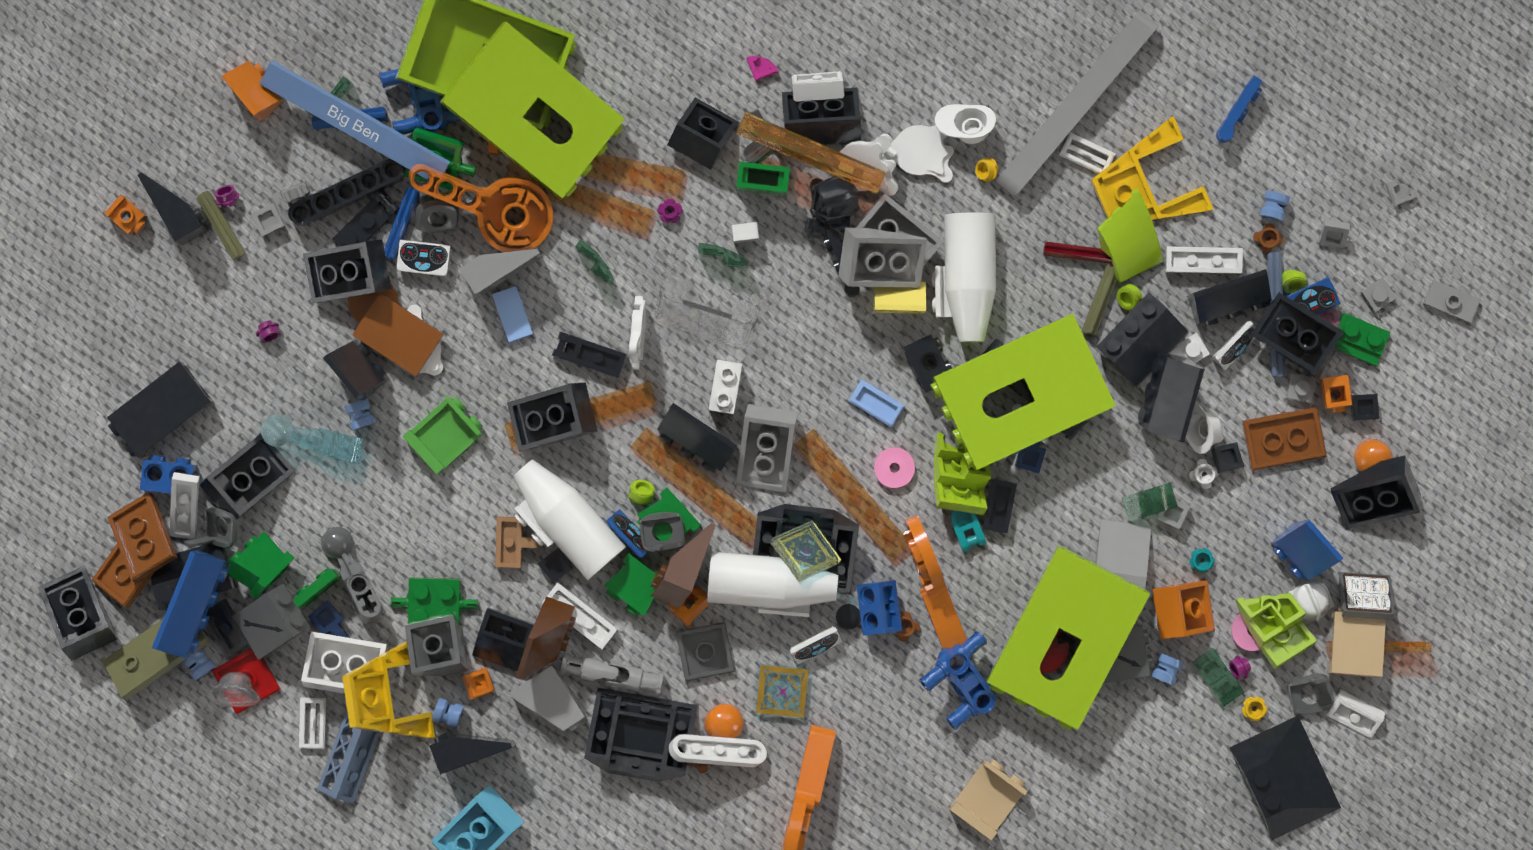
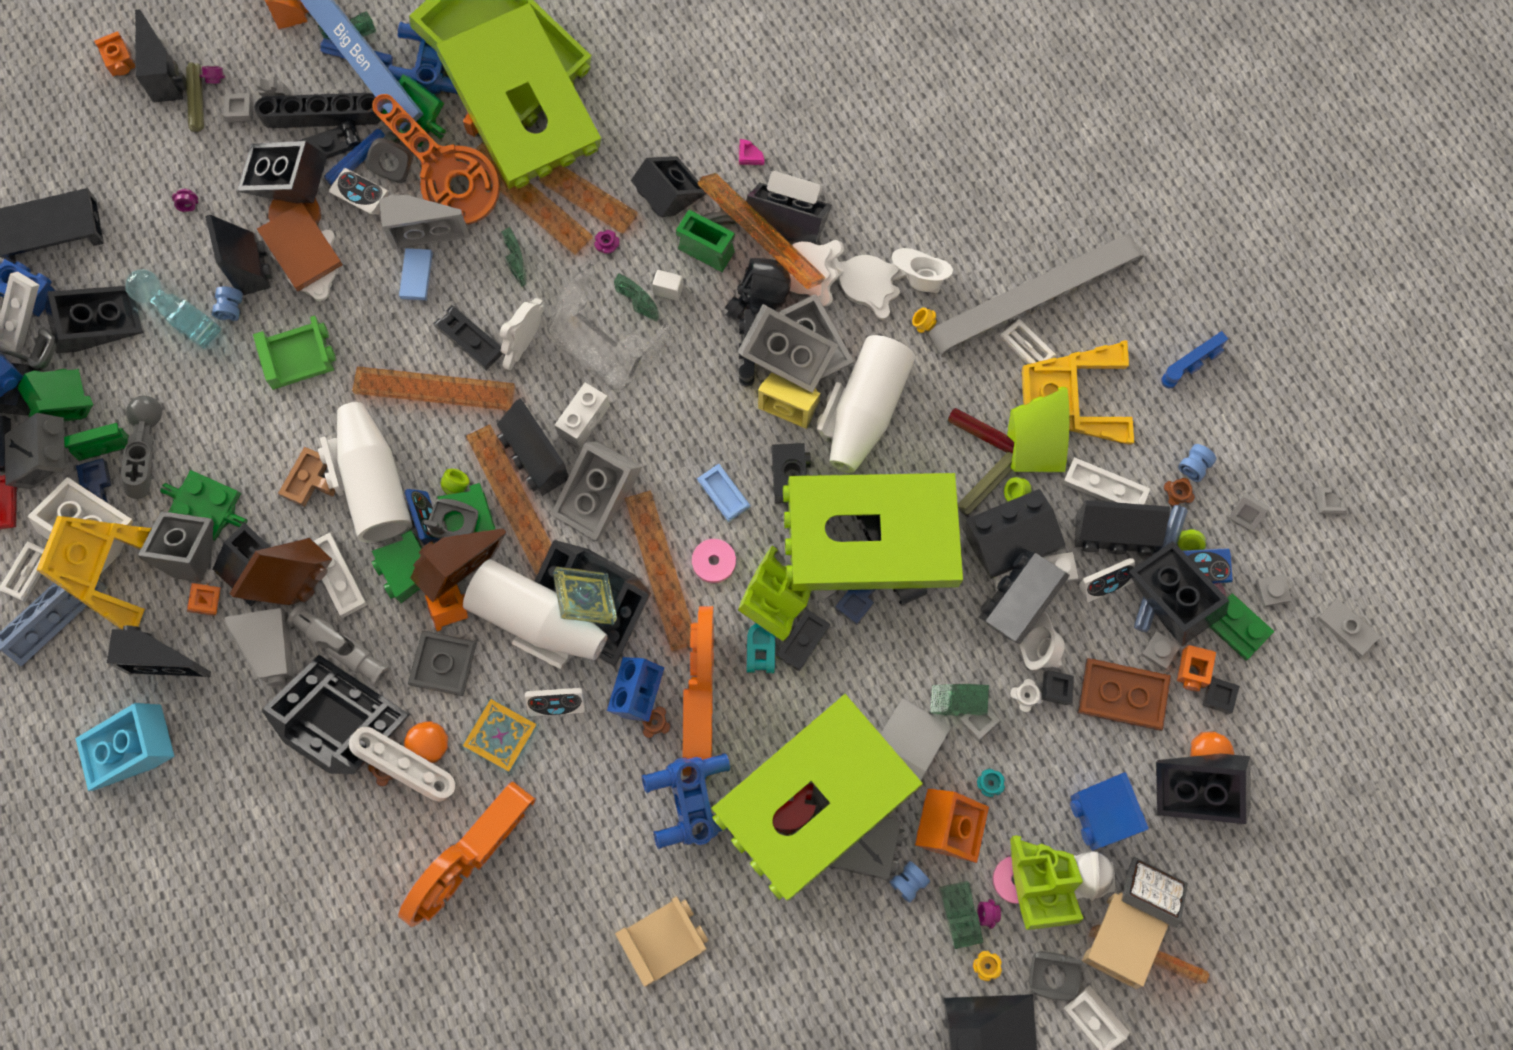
camera: 30 degrees right, 15 degrees down
(453, 713) = (157, 615): medium blue wheel -> none
(552, 416) = (404, 373): black slope -> none
(555, 565) = (336, 517): black plate -> none
(848, 616) = (601, 687): black plate -> none

